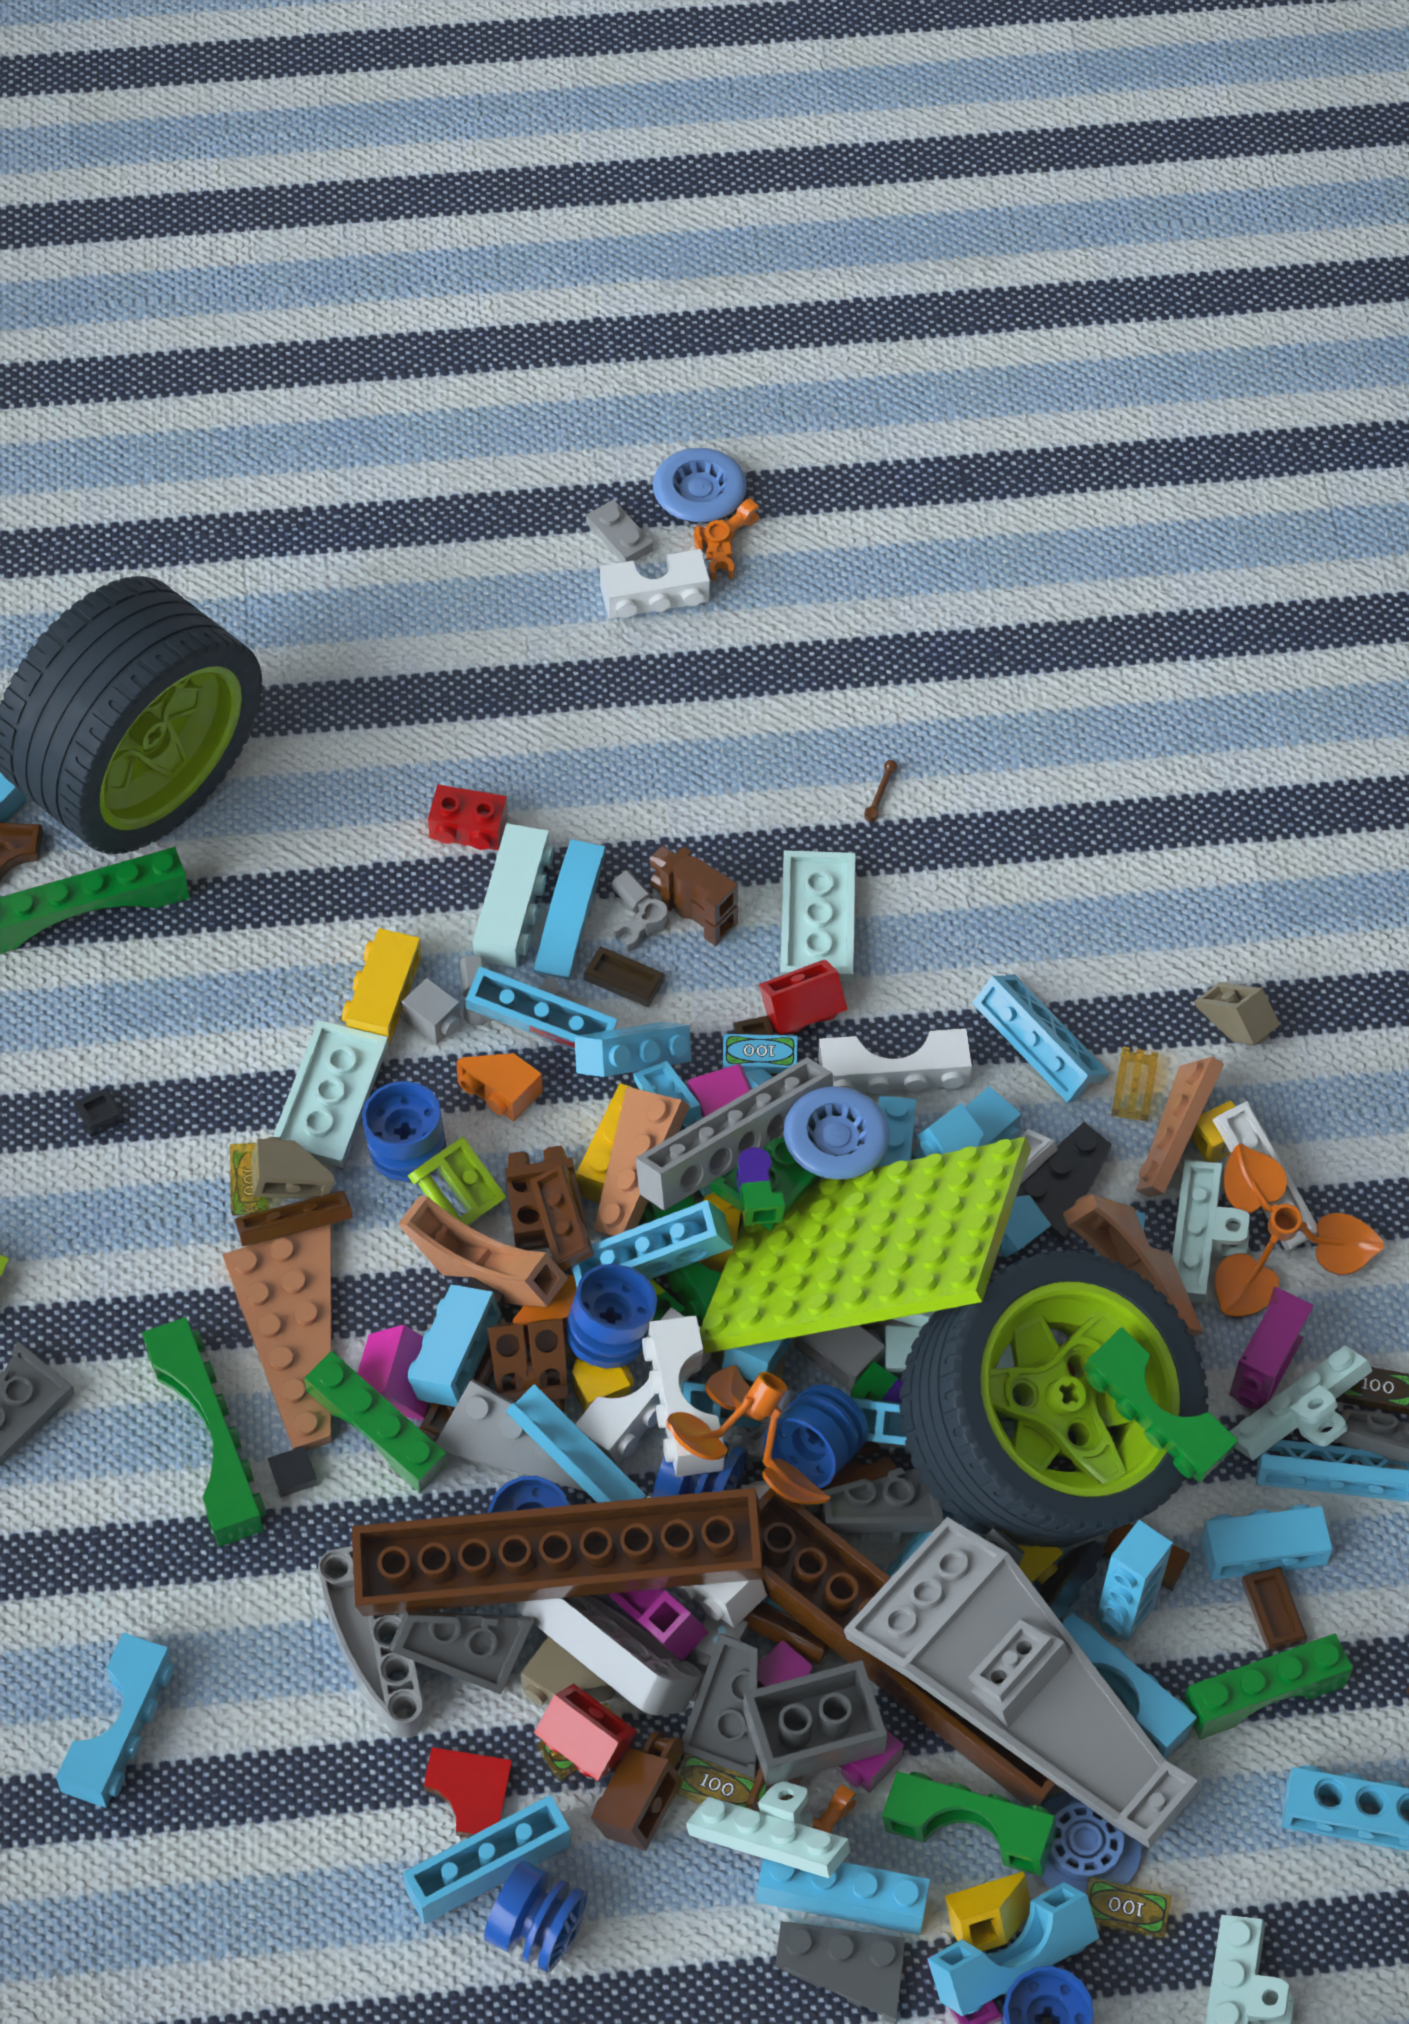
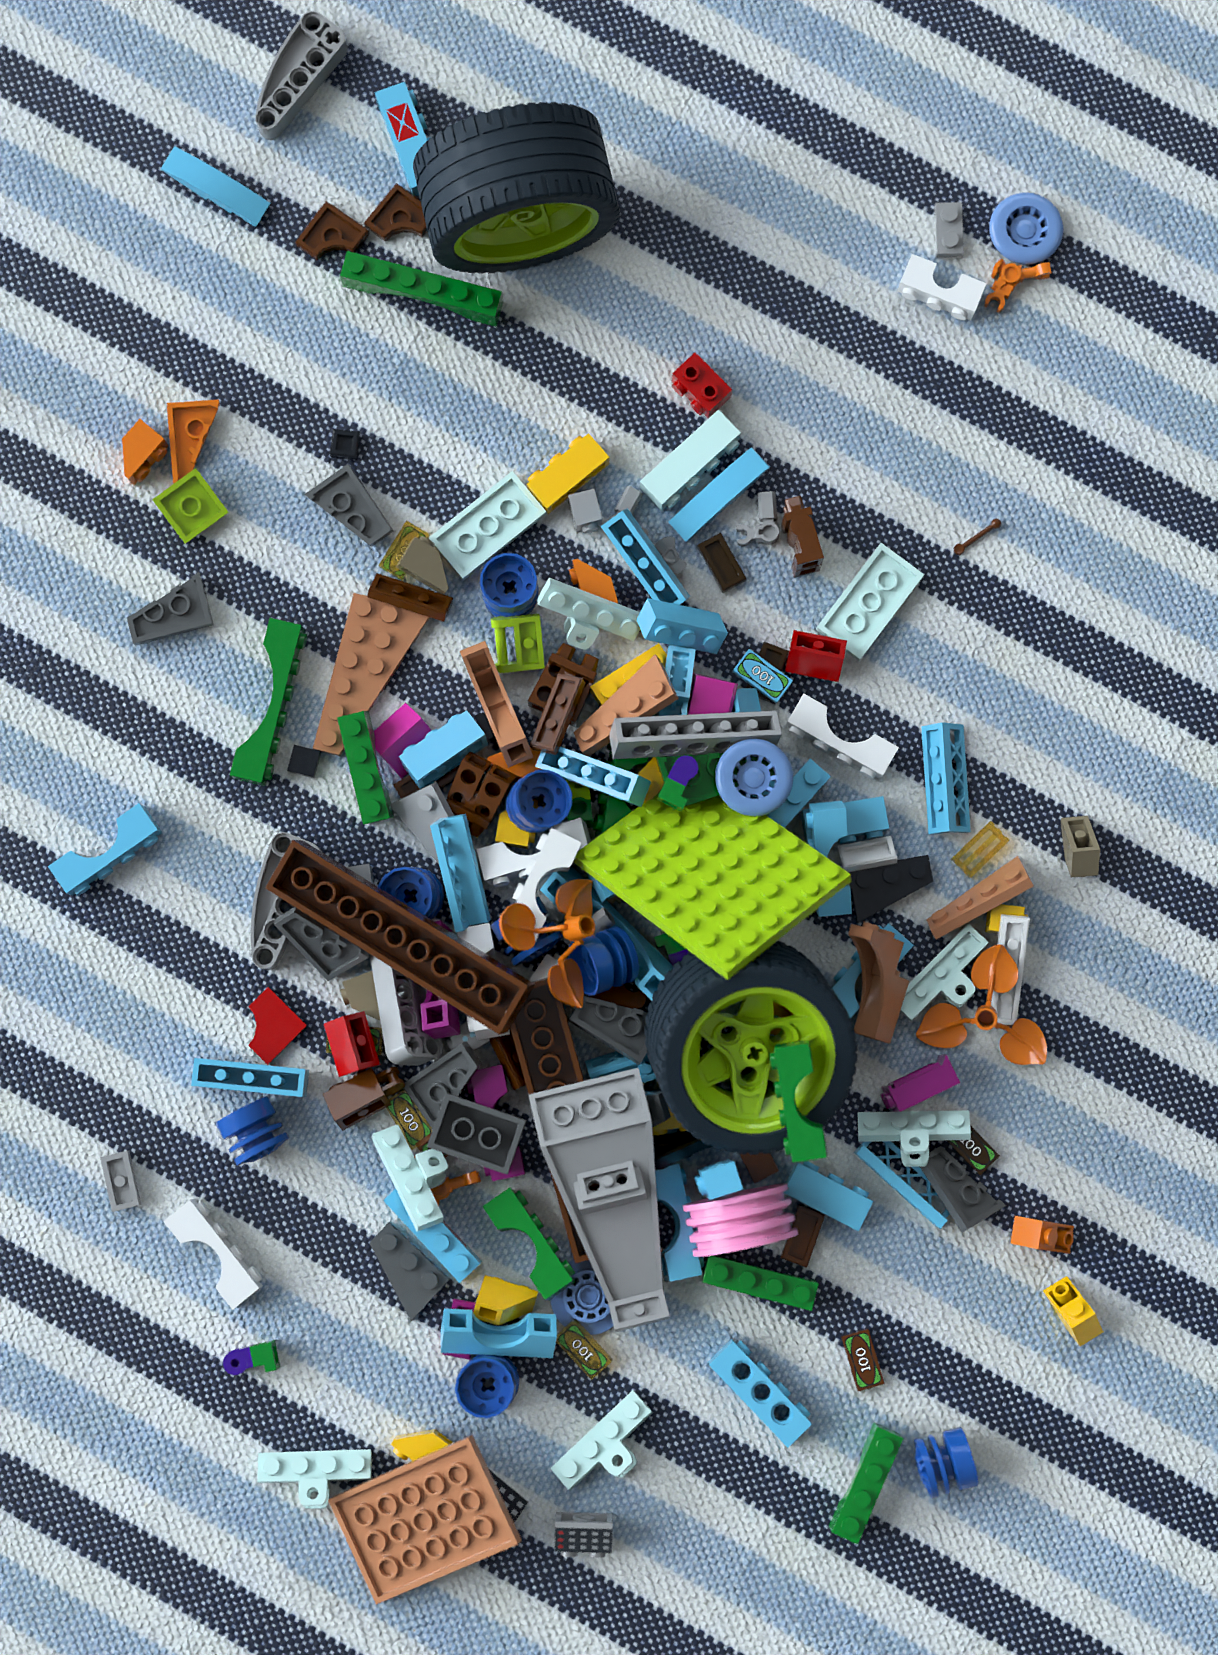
camera: 35 degrees right, 25 degrees up
(153, 1167) = (351, 504): none -> dark grey wing
(517, 1103) = (587, 613): none -> light aqua plate
(1192, 1612) = (740, 1220): none -> bright pink wheel

